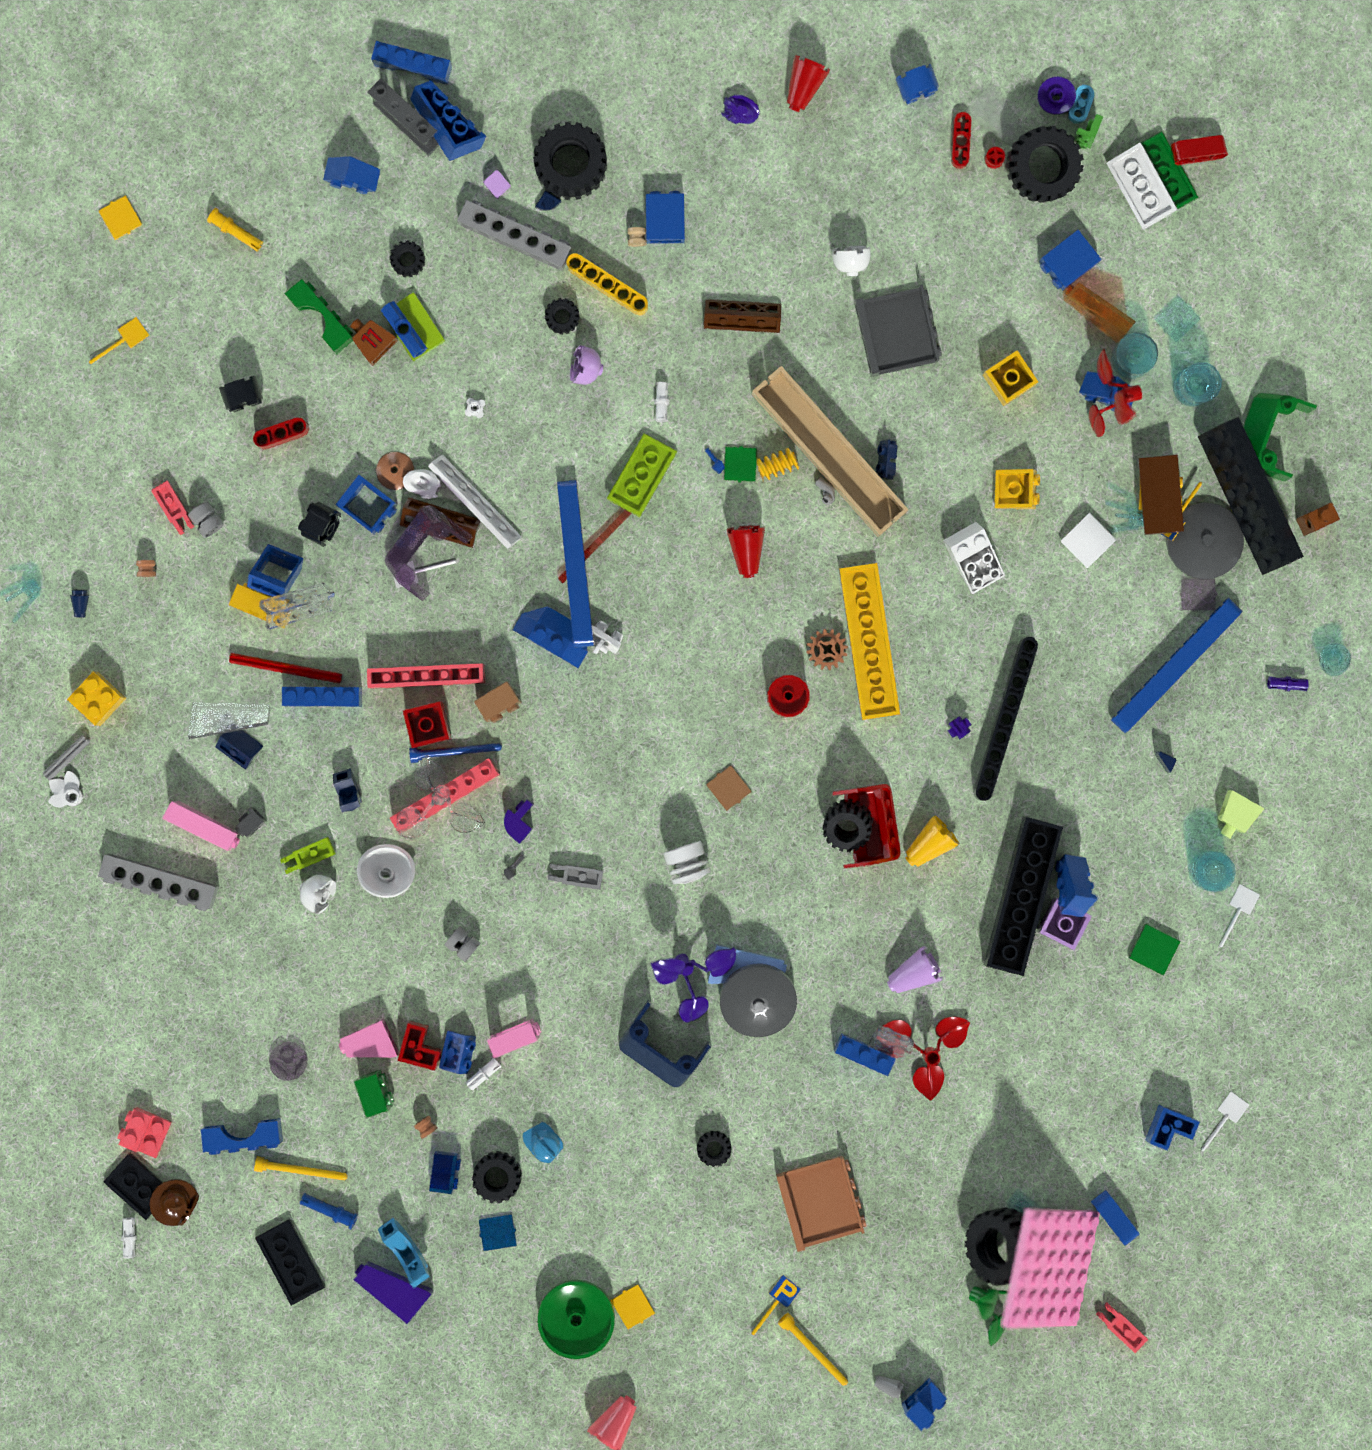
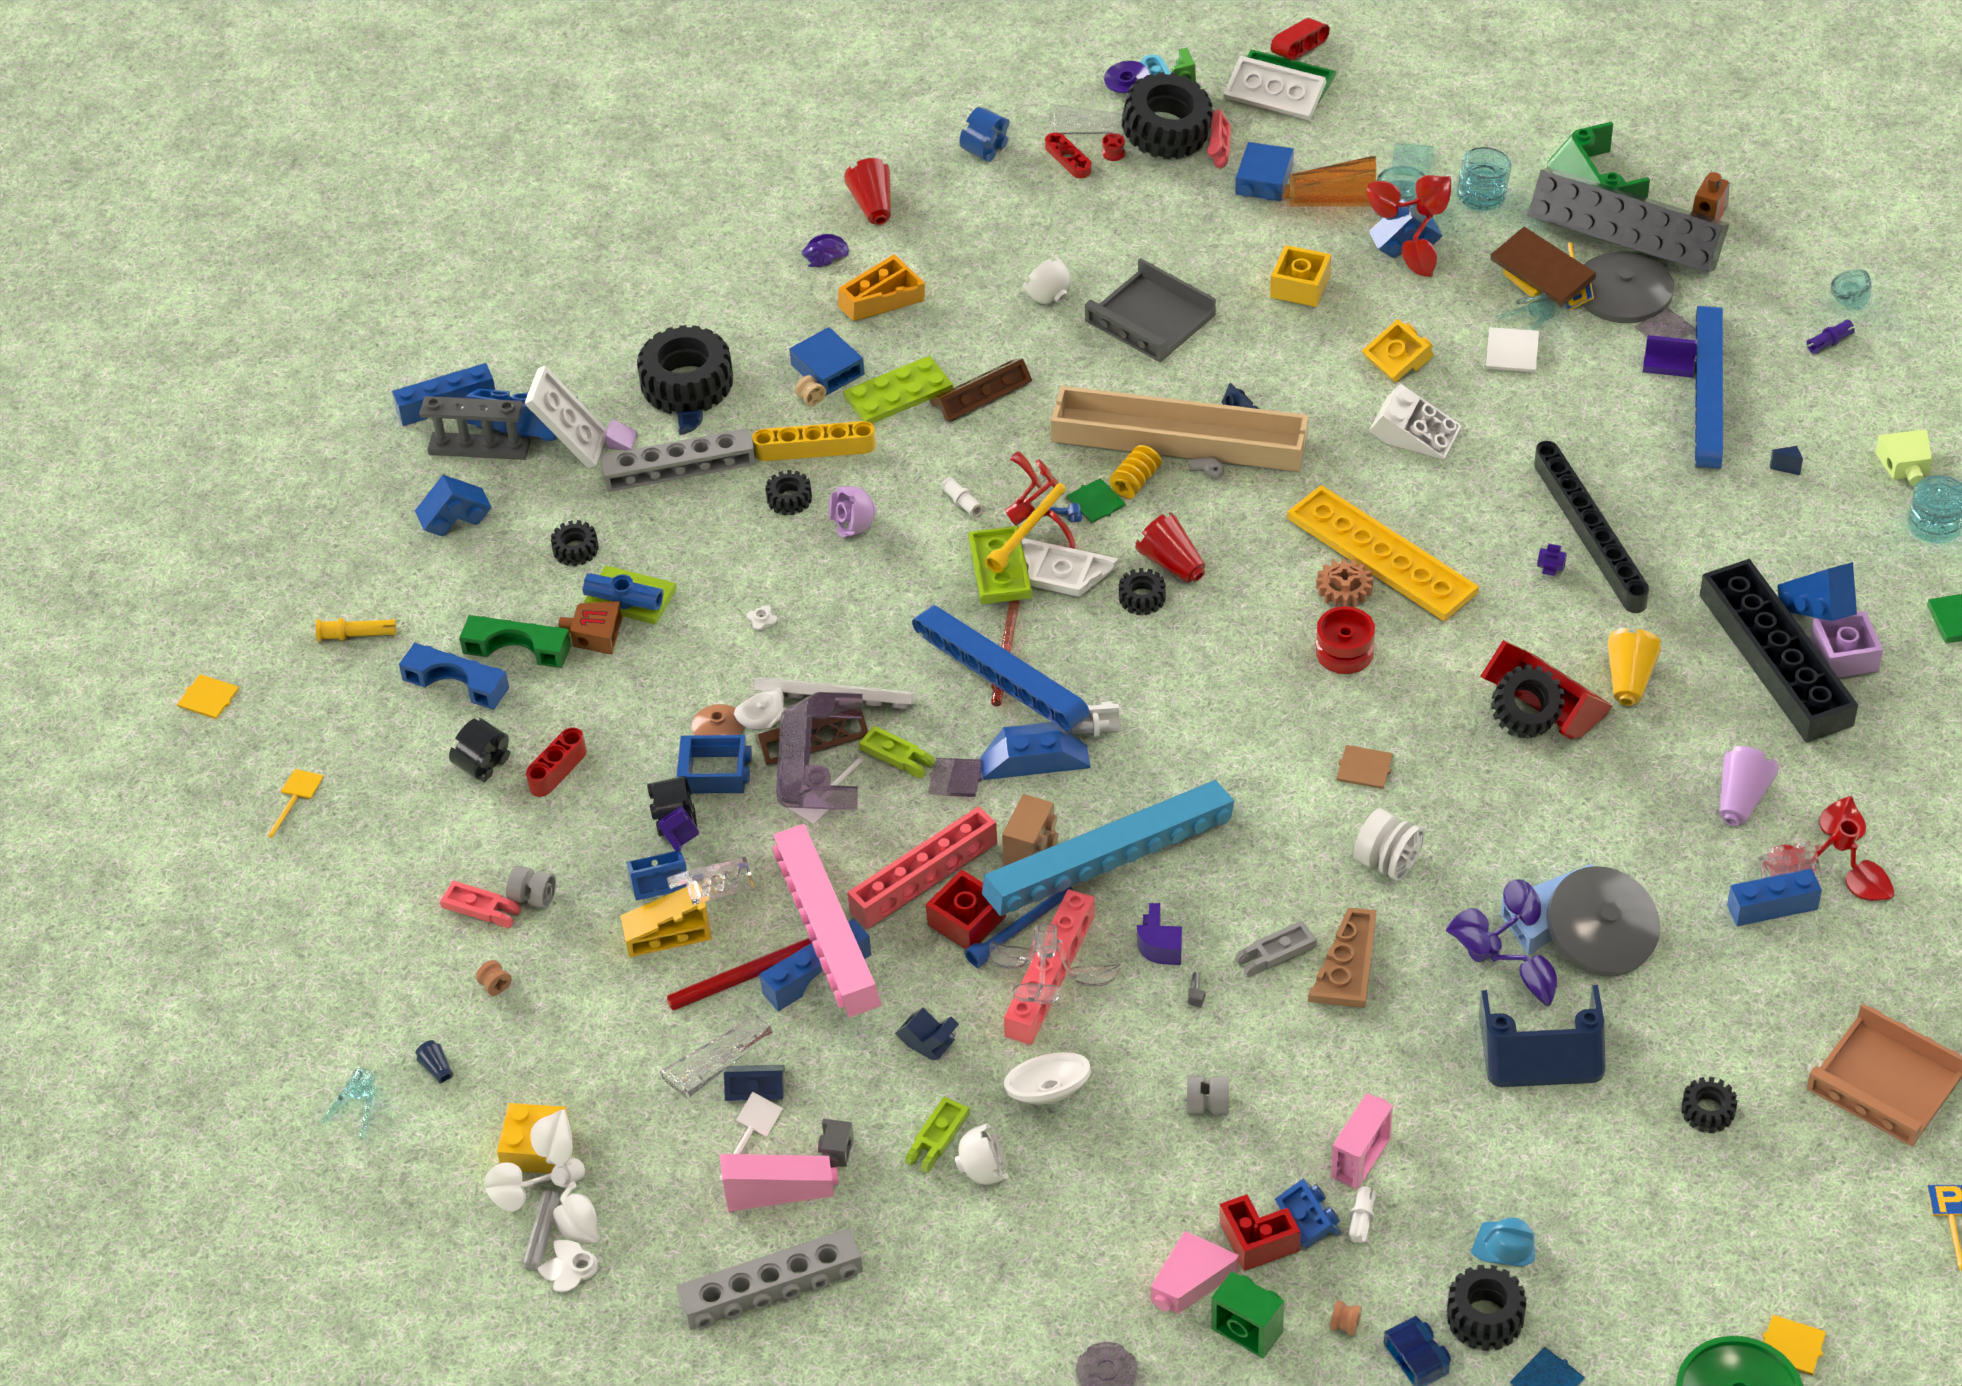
camera: 35 degrees left, 40 degrees down
(86, 735) = (550, 1139): none -> white plant
(224, 770) = (758, 1116): none -> white piece
(278, 337) = (427, 665): none -> blue arch
(304, 546) = (678, 828): none -> dark purple panel
(337, 683) = (825, 921): none -> bright pink brick
(460, 158) = (566, 417): none -> white plate
(476, 572) = (896, 751): none -> lime hinge
(497, 617) = (955, 777): none -> clear purple piece
(532, 747) = (1107, 847): none -> dark azure brick
(604, 916) = (1347, 964): none -> medium nougat wing
(637, 478) = (998, 559): none -> yellow piece
(676, 507) = (1065, 568): none -> white wing
(686, 446) = (1023, 506): none -> red plant
(692, 275) = (897, 390): none -> lime plate
(695, 562) = (1141, 580): none -> black tyre
(742, 181) = (881, 290): none -> light orange wedge
(1067, 206) = (1220, 139): none -> coral hinge
(1173, 625) = (1669, 356): none -> dark purple panel

